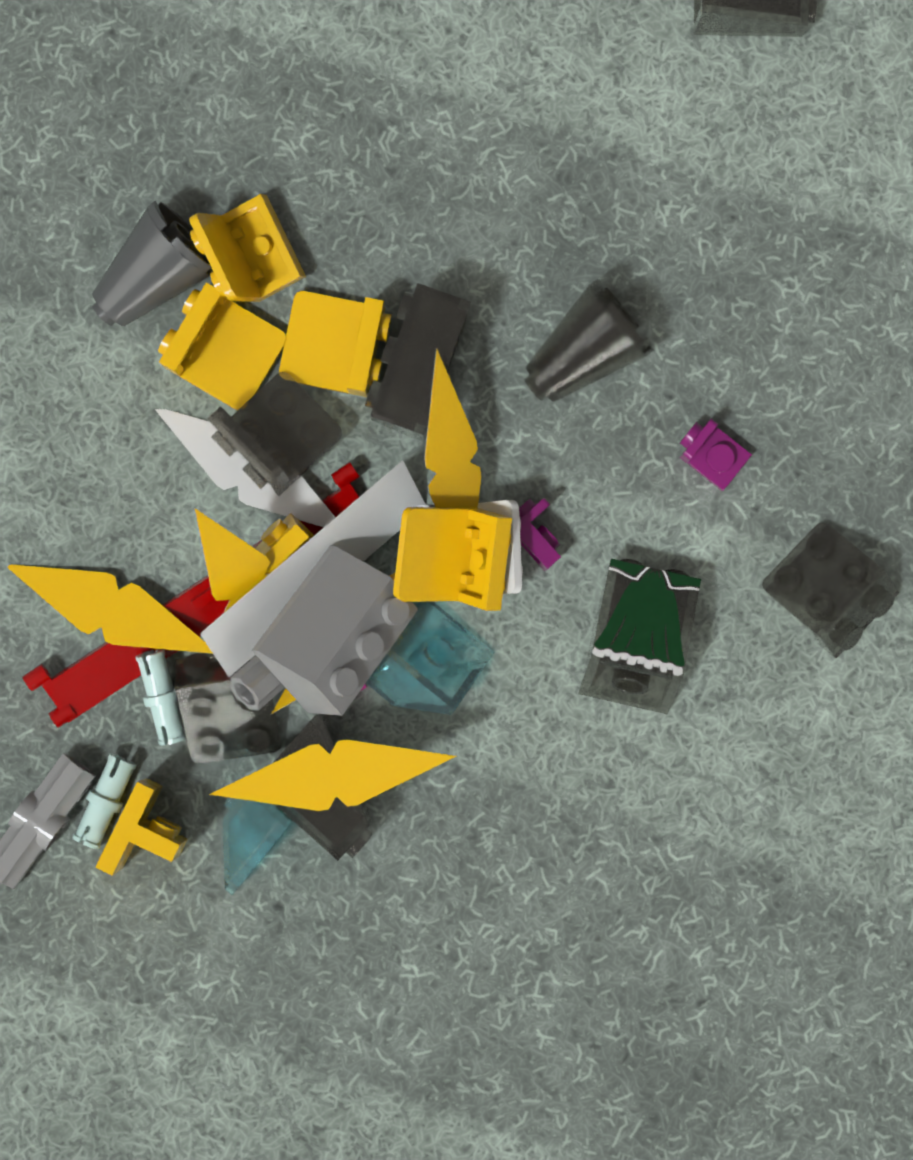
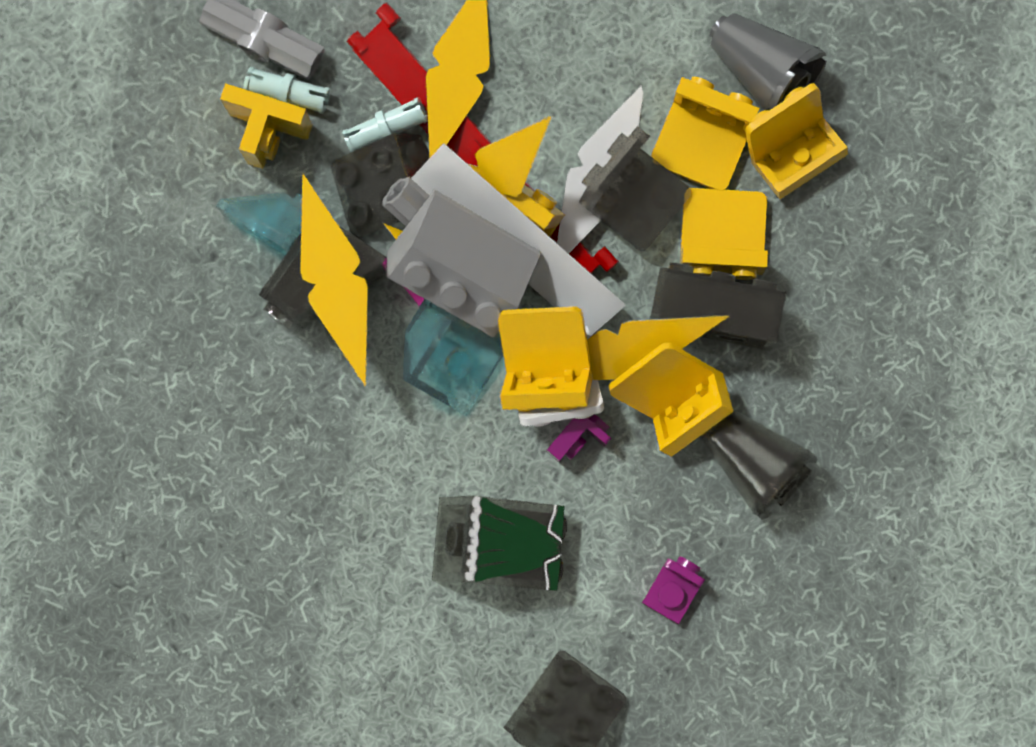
camera: 85 degrees right, 5 degrees down
(508, 416) = (677, 393): none -> yellow bracket

